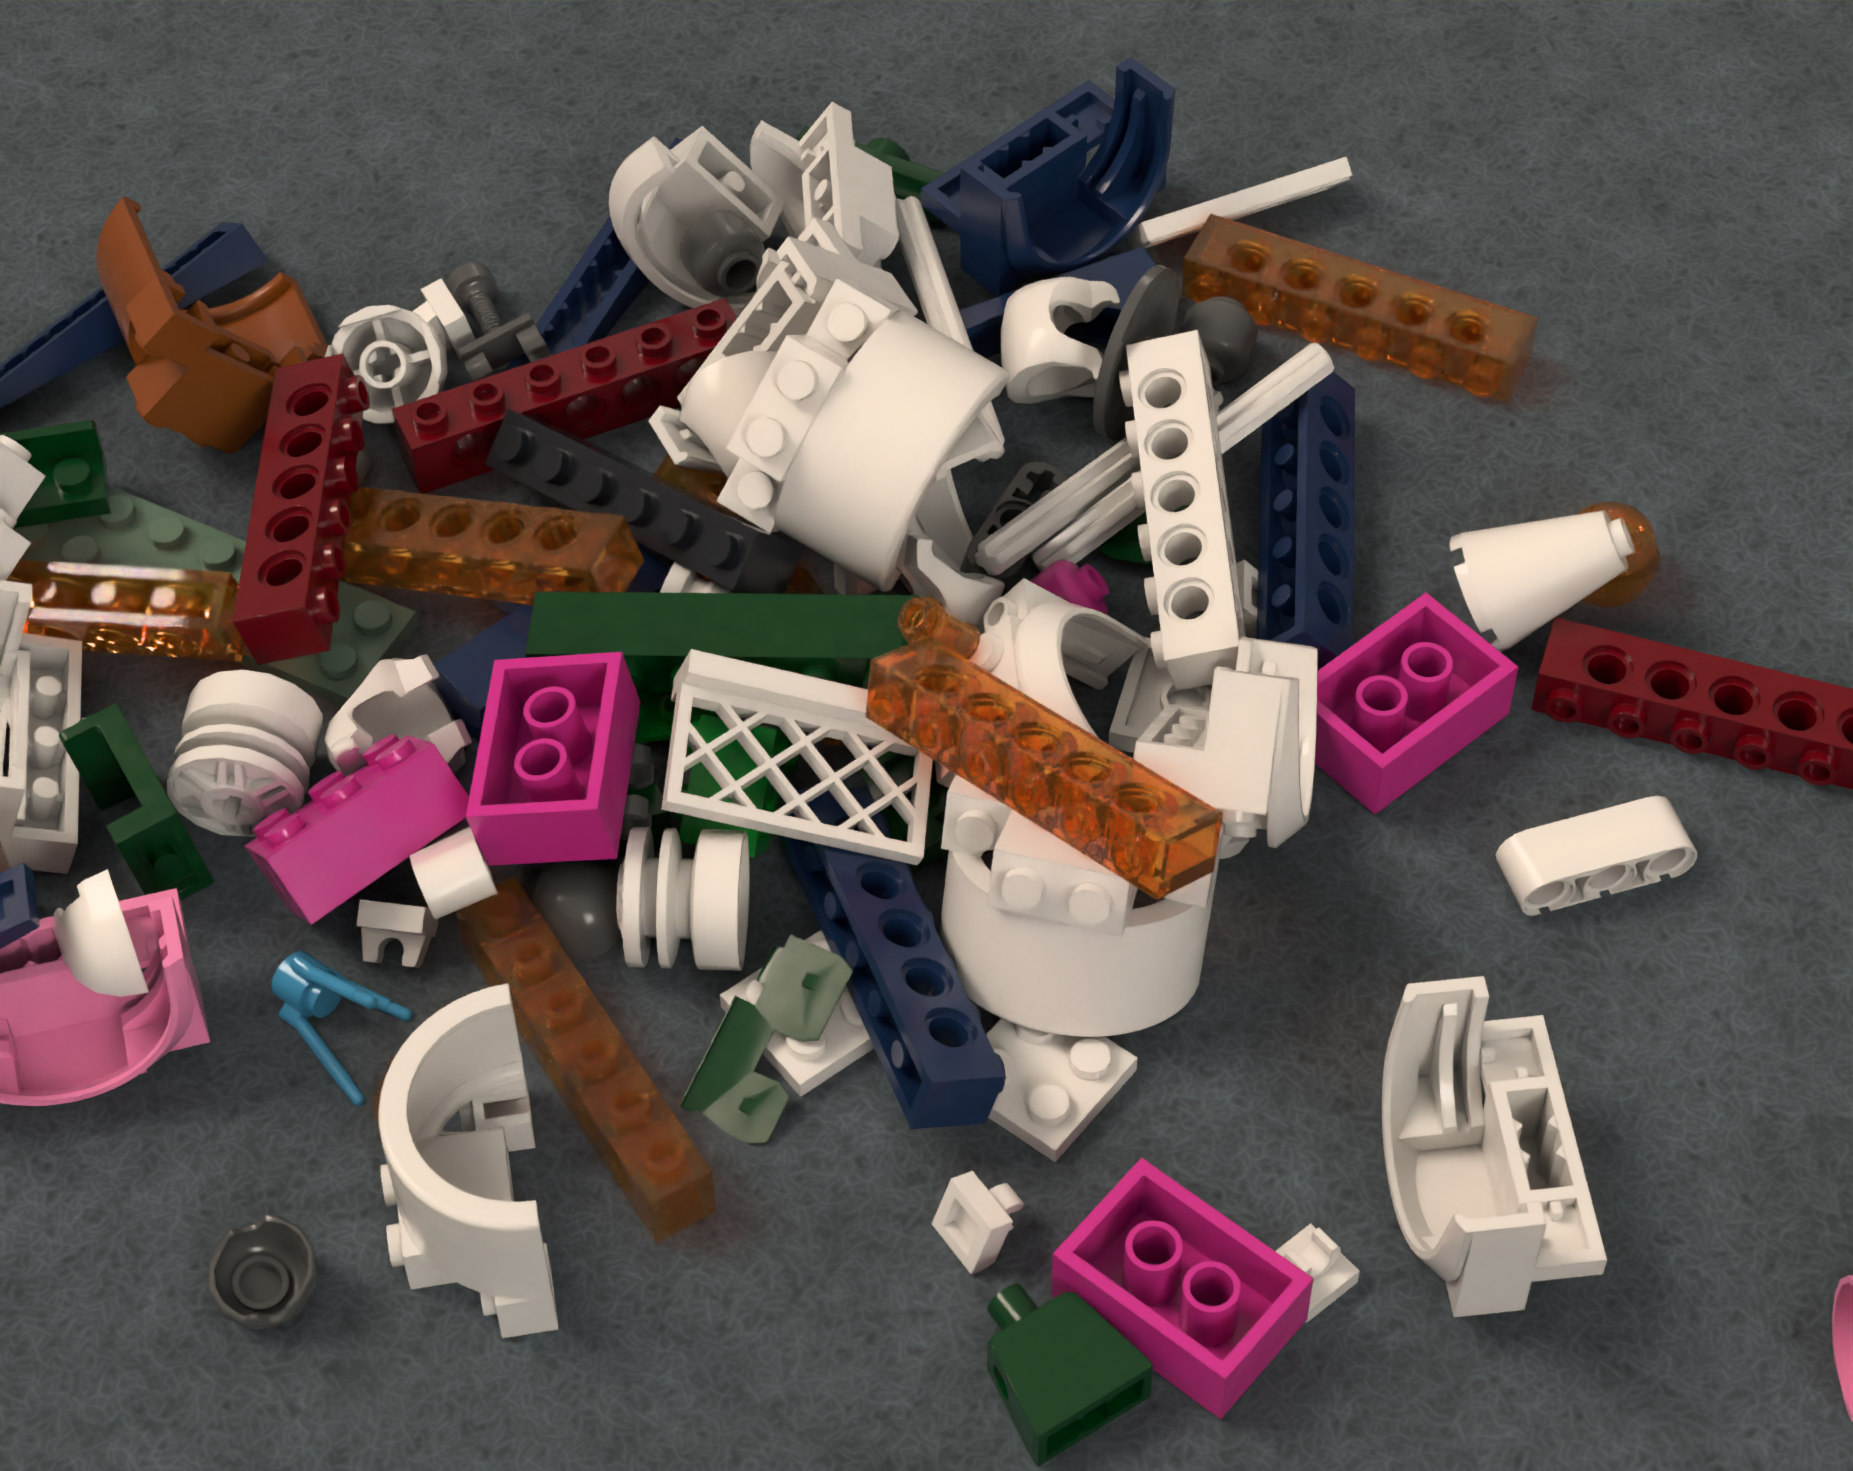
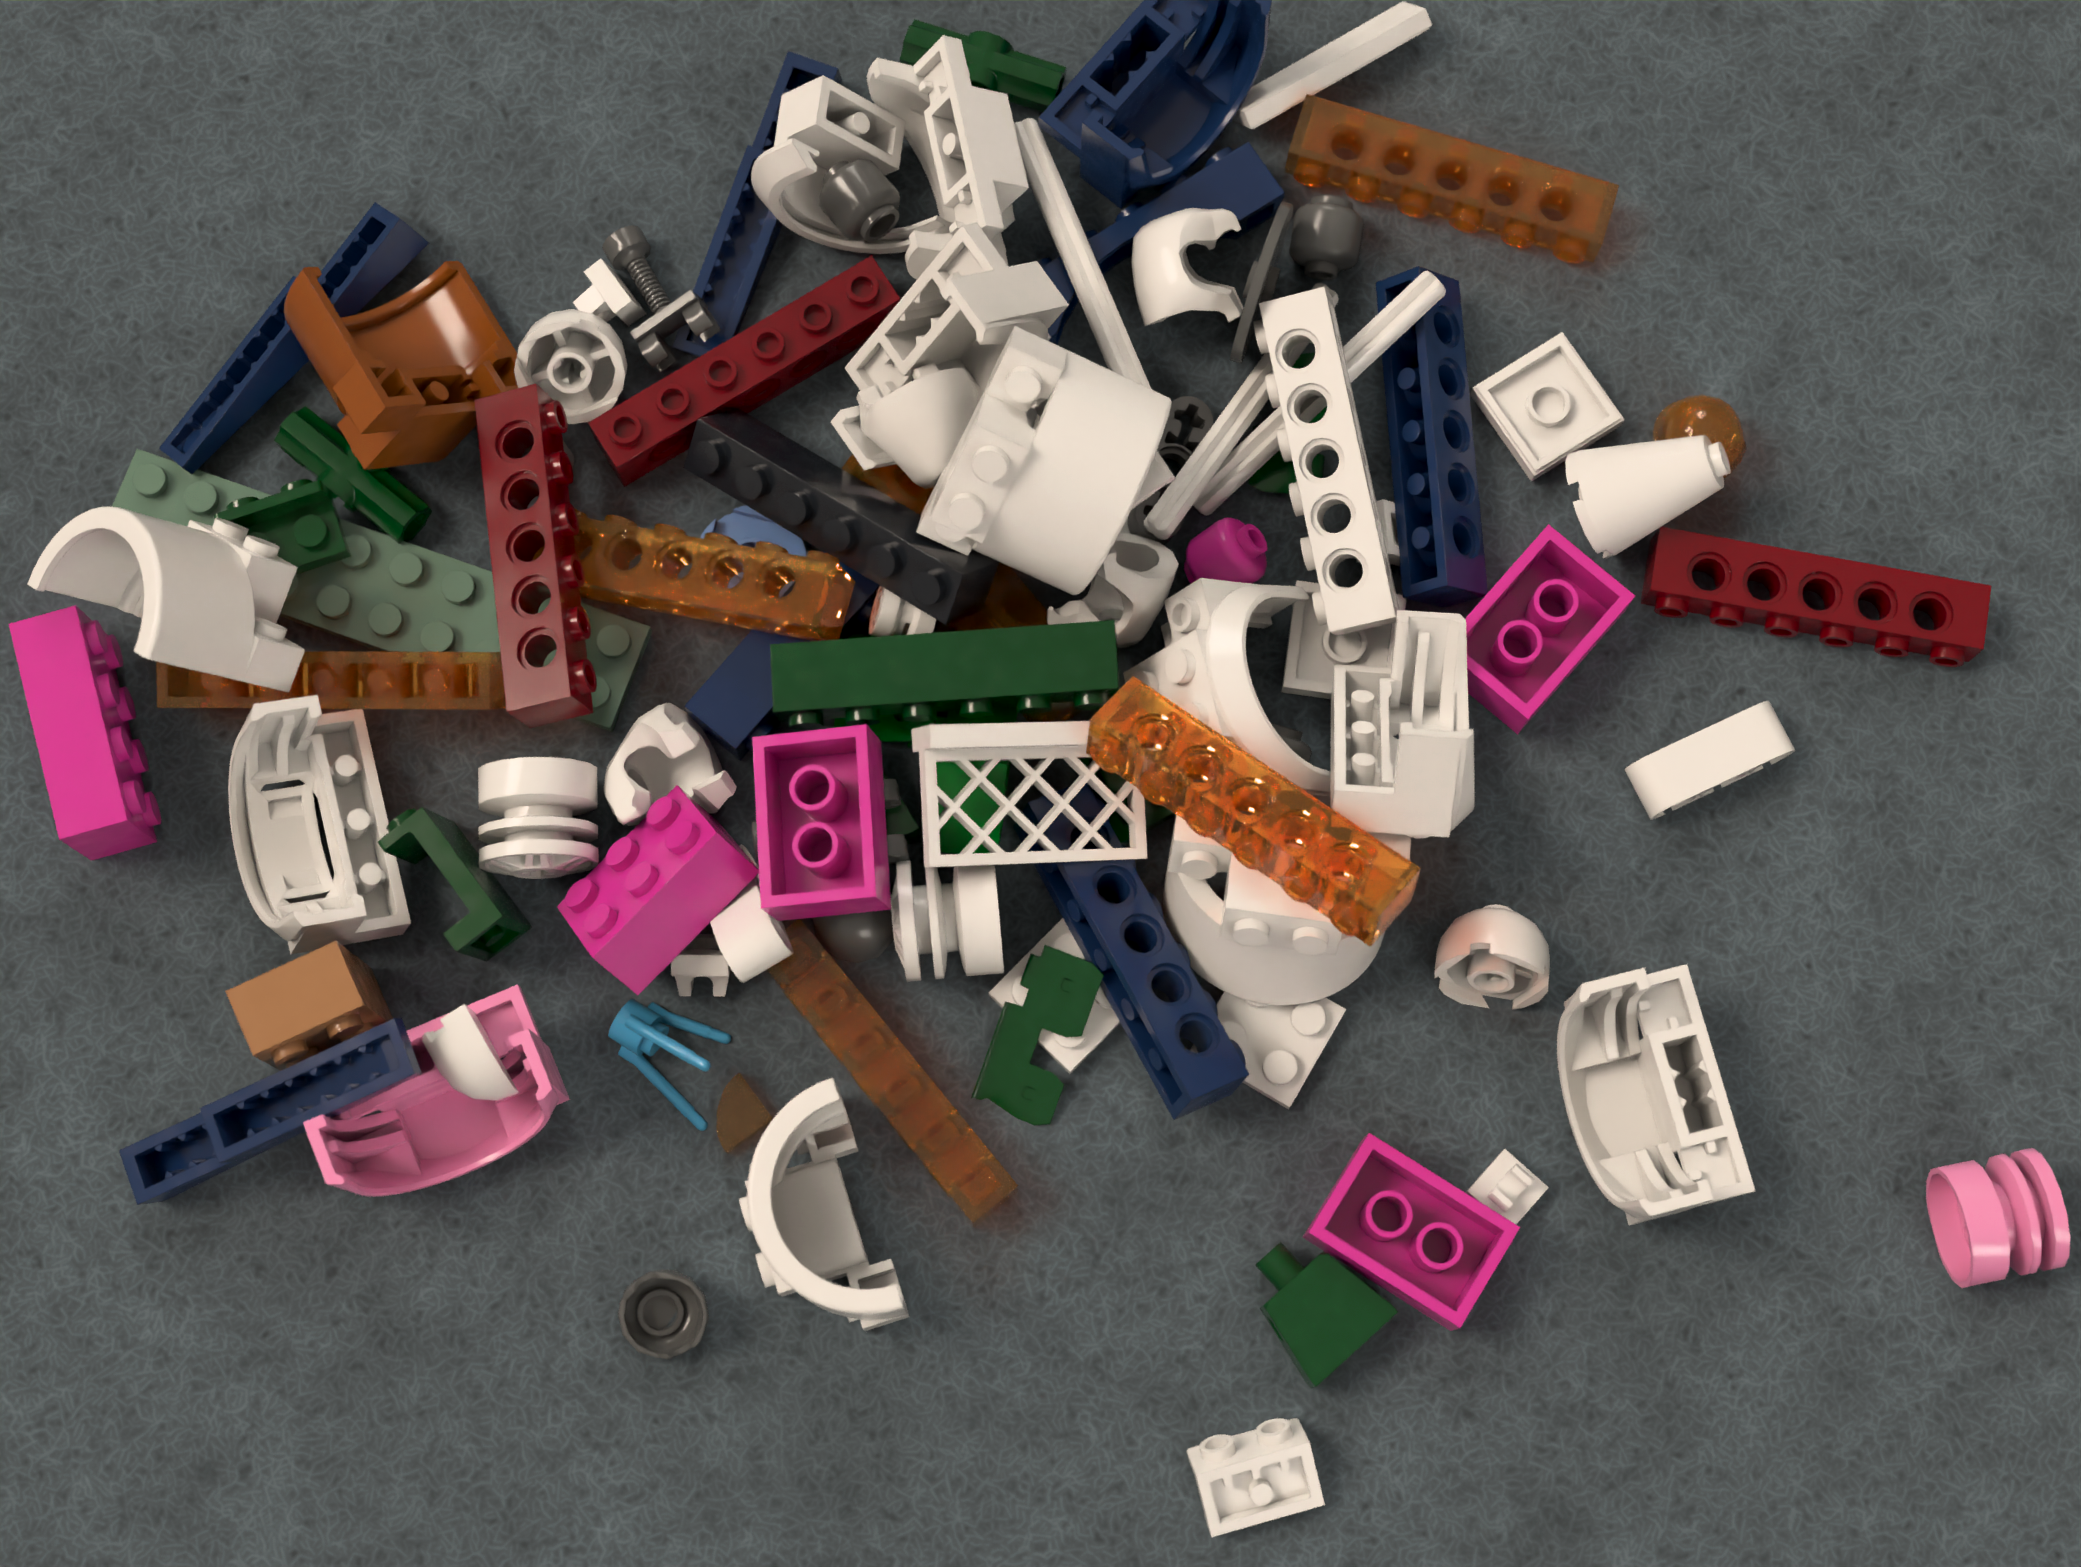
camera: 10 degrees left, 25 degrees up
(136, 449) = (370, 491): none -> dark green piece
(928, 617) = (1129, 655): clear orange pin -> none
(975, 1219) = (1236, 1184): white tile -> none
(1316, 1006) = (1493, 956): none -> white cylinder
(1429, 505) = (1546, 406): none -> white plate

